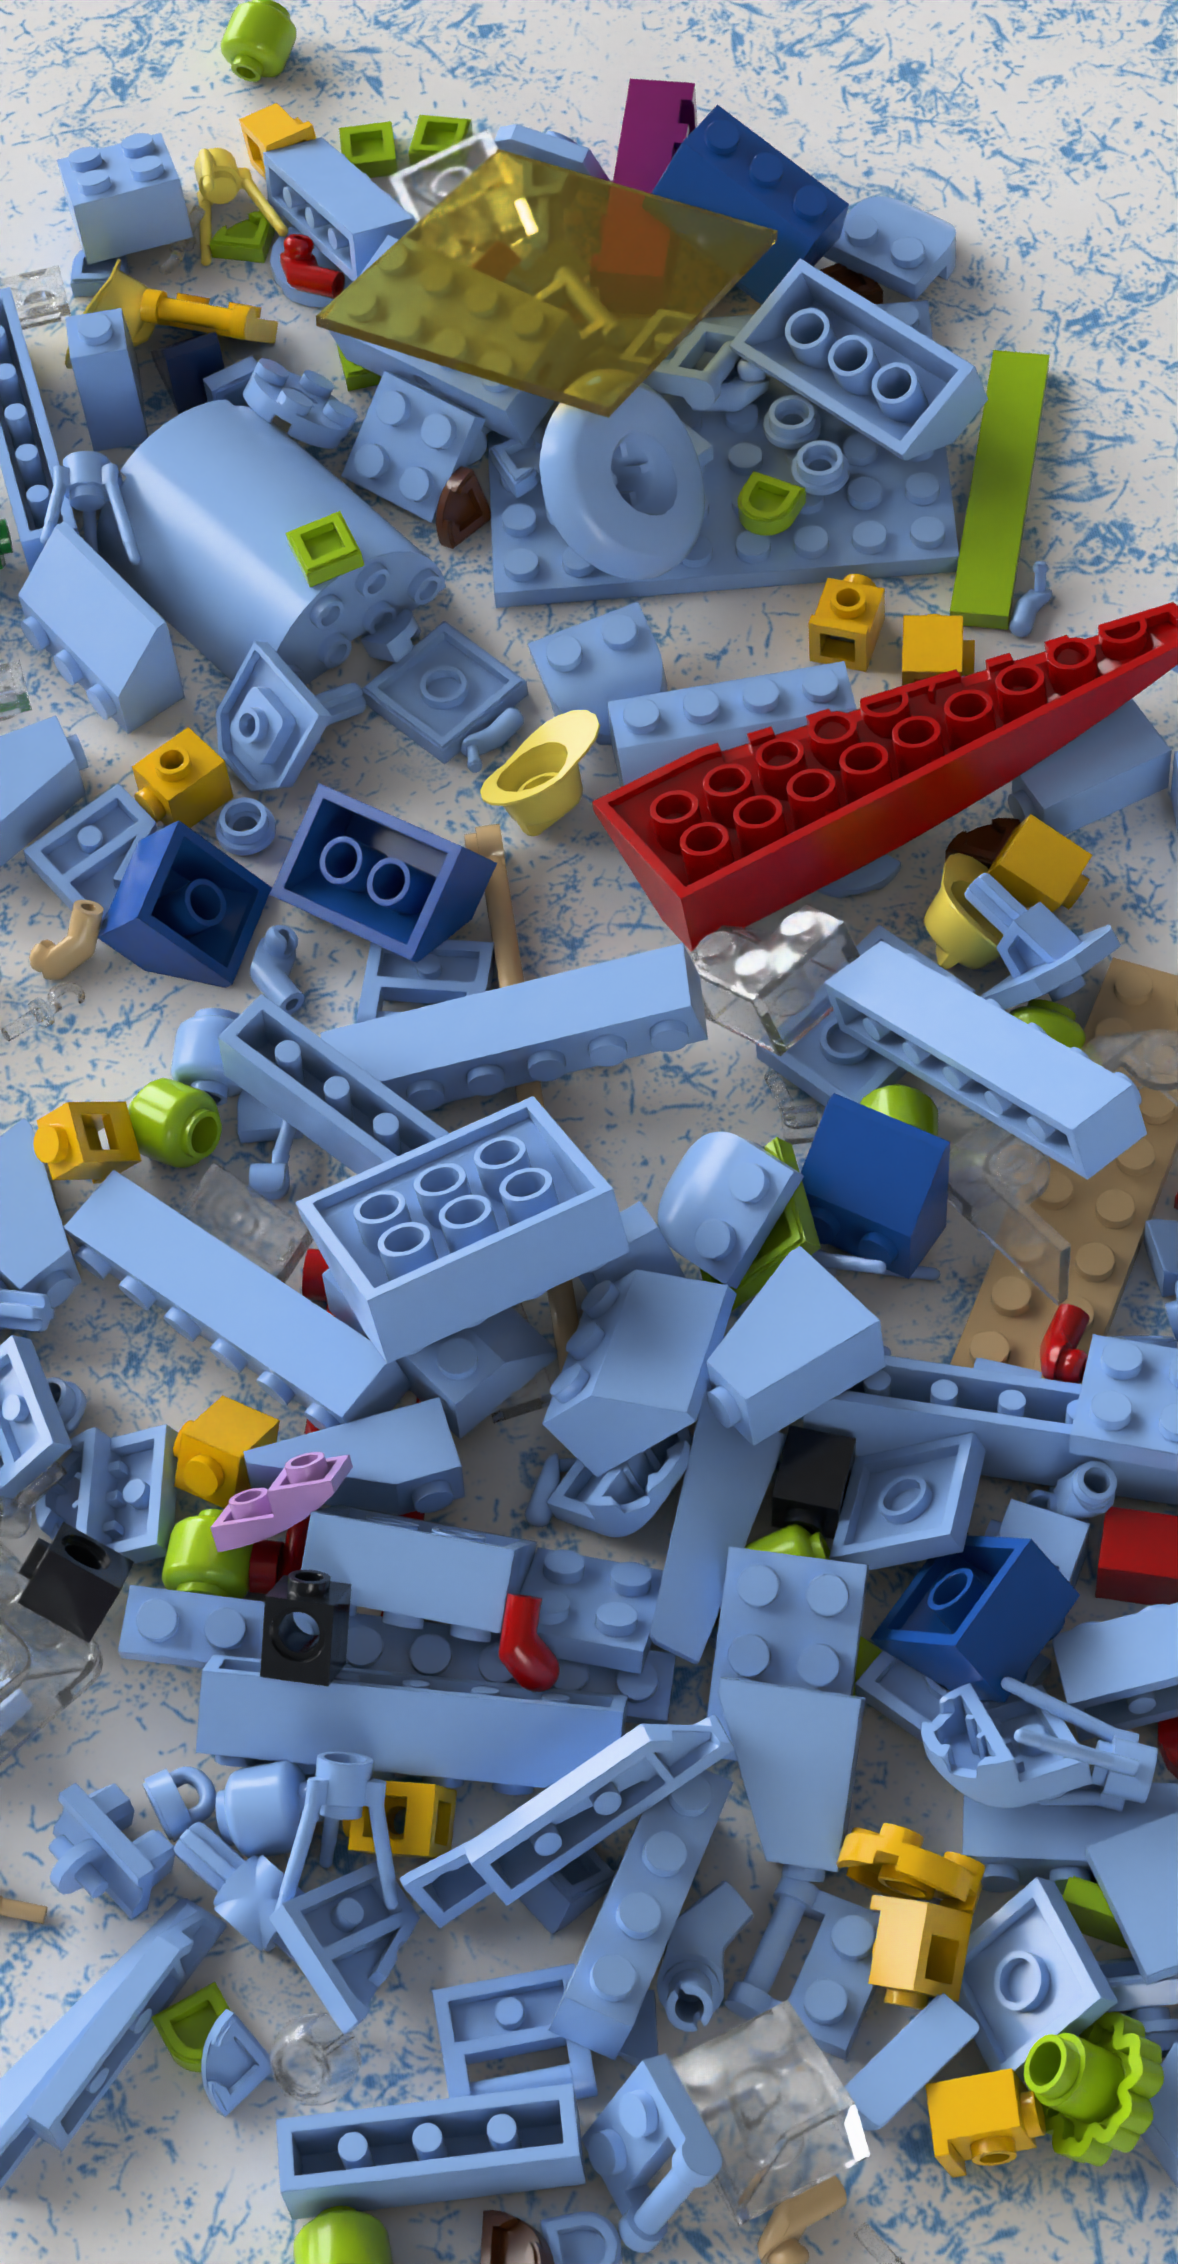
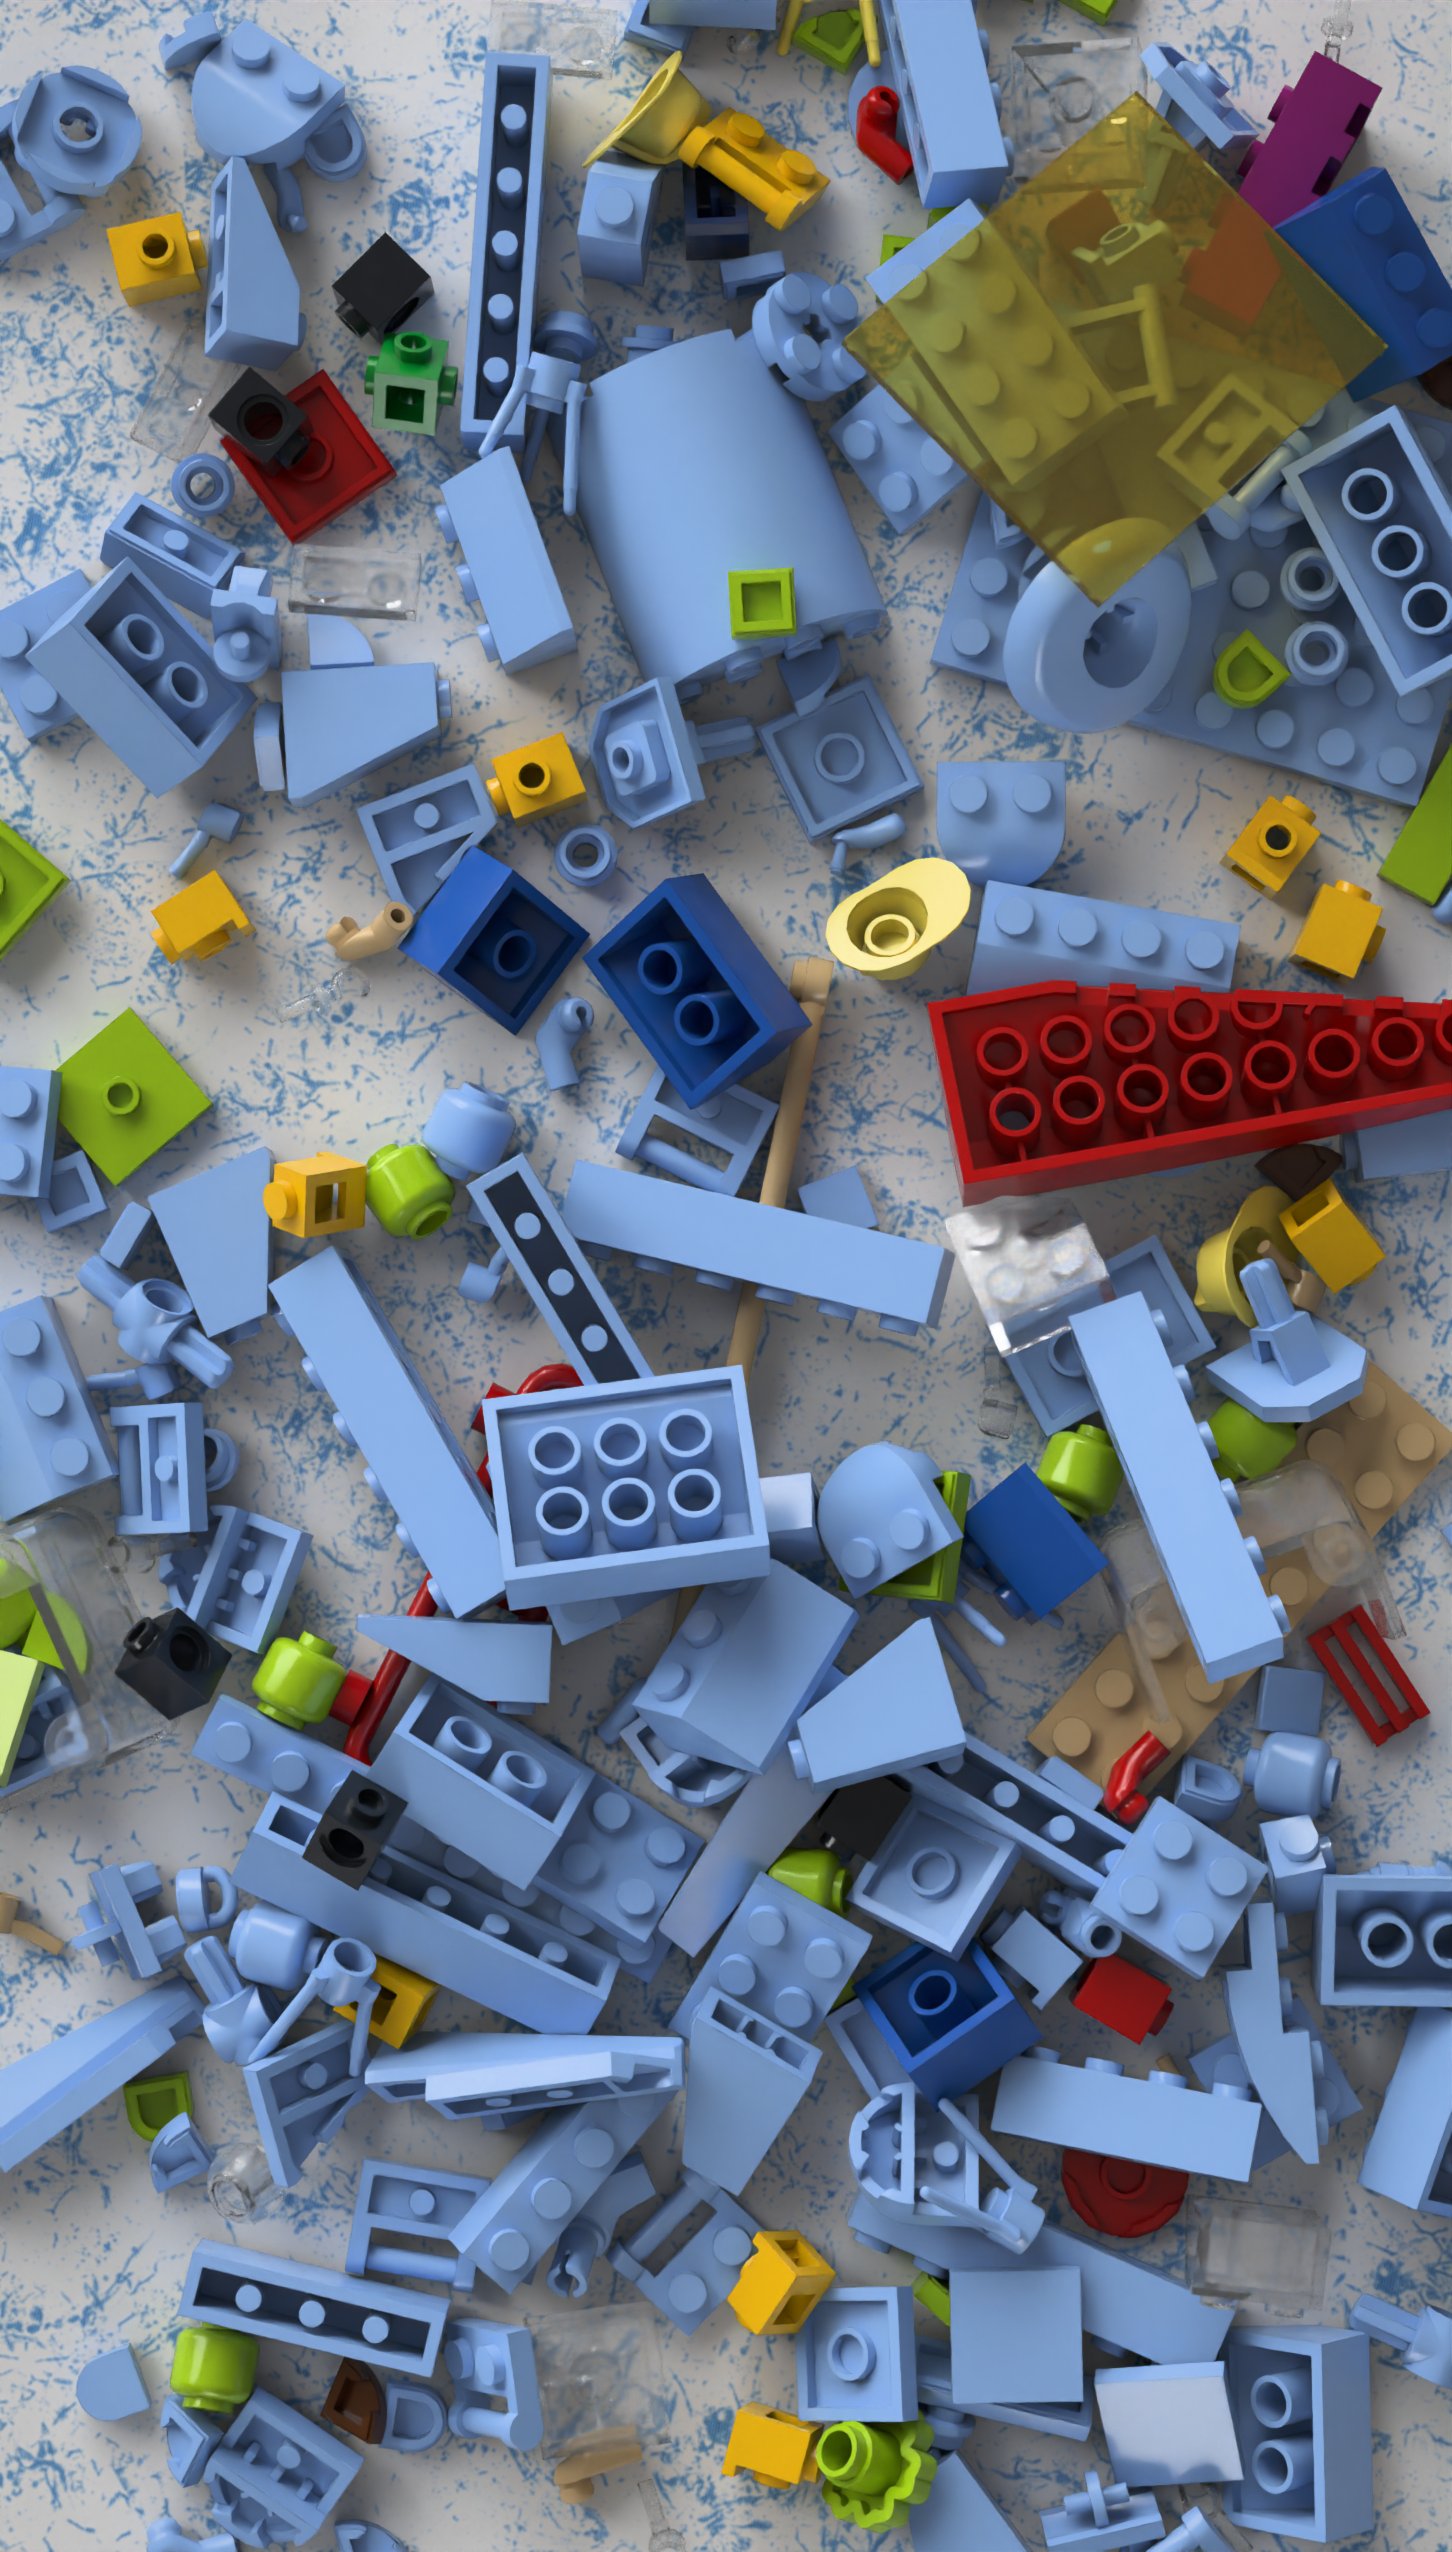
camera: 15 degrees right, 30 degrees up
(213, 1447) = (345, 1578): yellow brick -> none
(248, 1222) = (442, 1331): clear plate -> none
(294, 1494) = (375, 1689): lavender slope -> none
(461, 508) = (934, 535): reddish brown tile -> none
(522, 1648) = (540, 1904): red arm -> none
(899, 1868) = (801, 2221): yellow plate -> none
(910, 2061) = (733, 2384): light blue slope -> none

